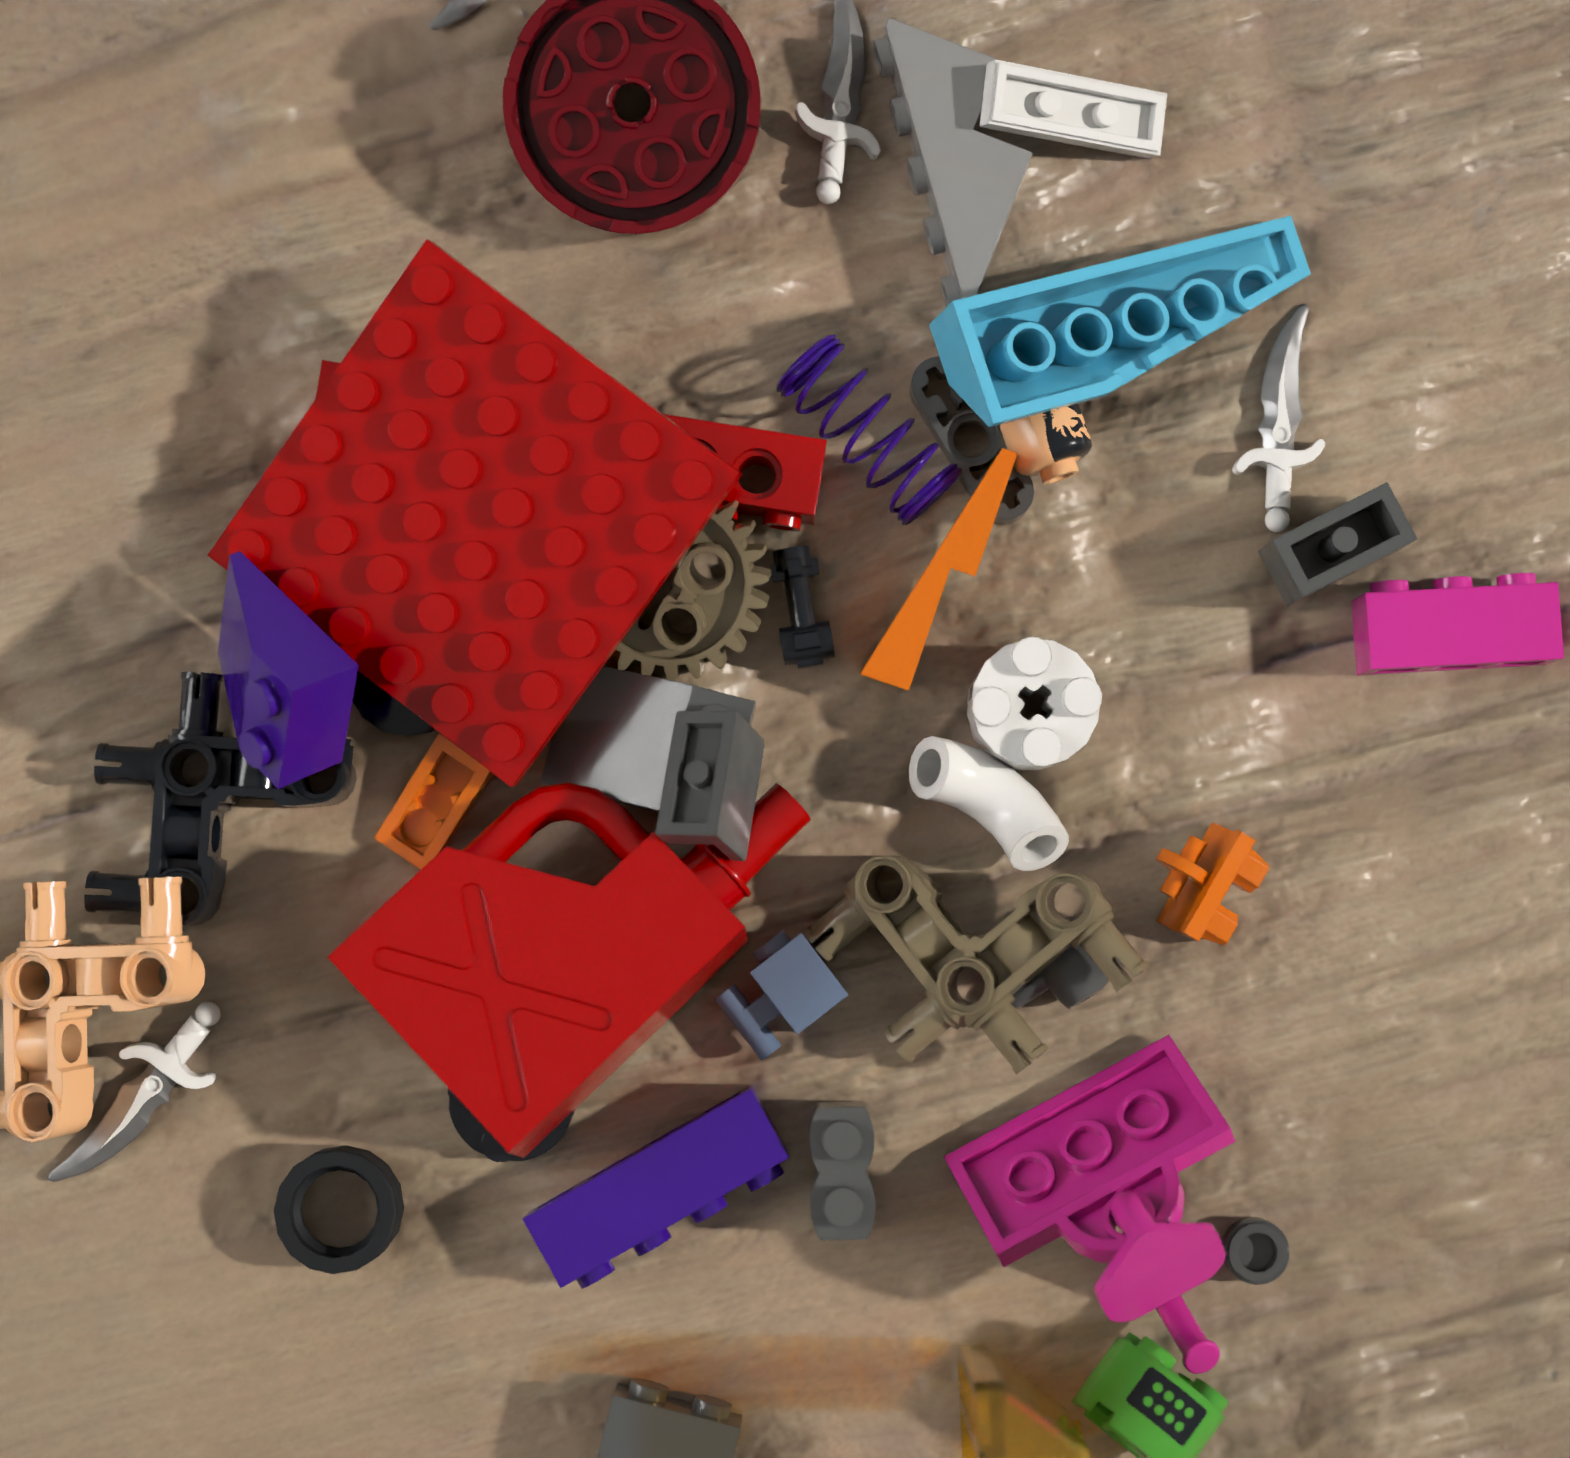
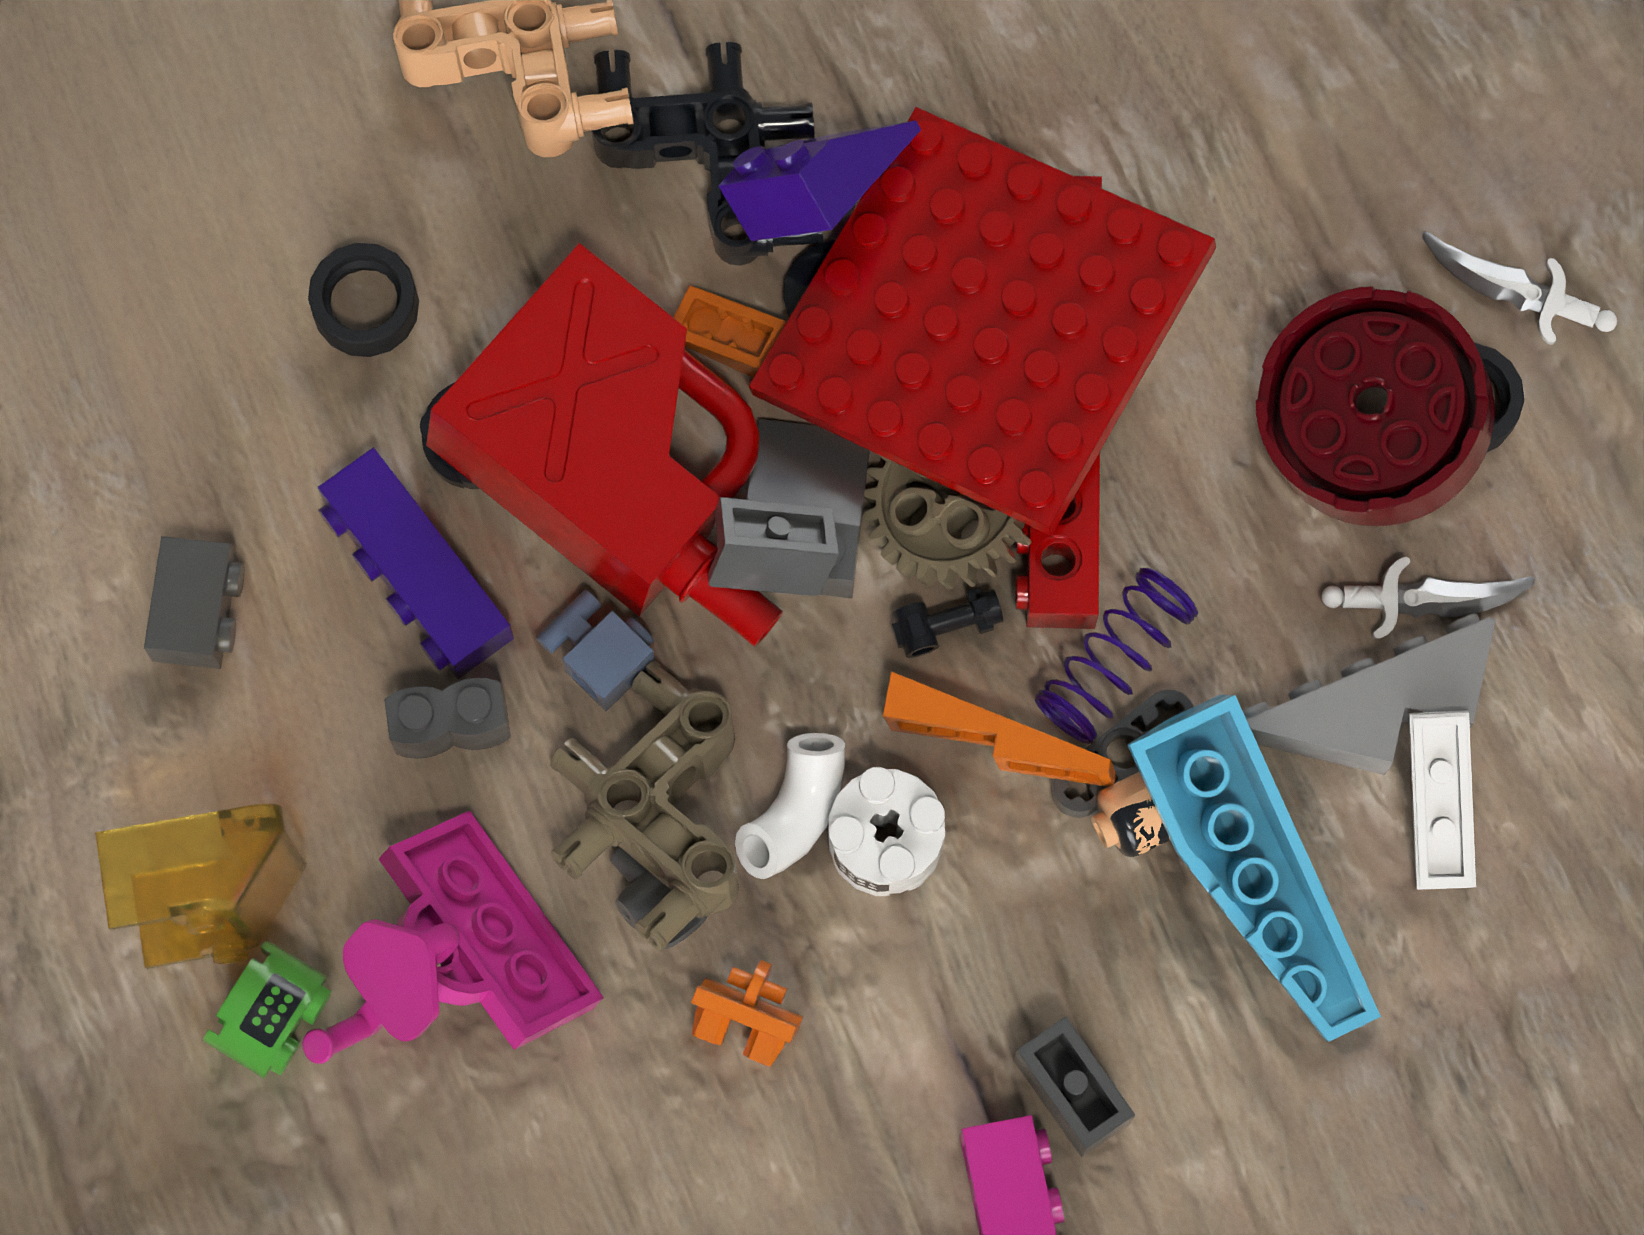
camera: 80 degrees right, 10 degrees down
(141, 1096) = (443, 128): piece -> none
(1255, 1250) = (417, 1102): dark grey tile -> none
(1280, 421) = (1188, 1034): piece -> none

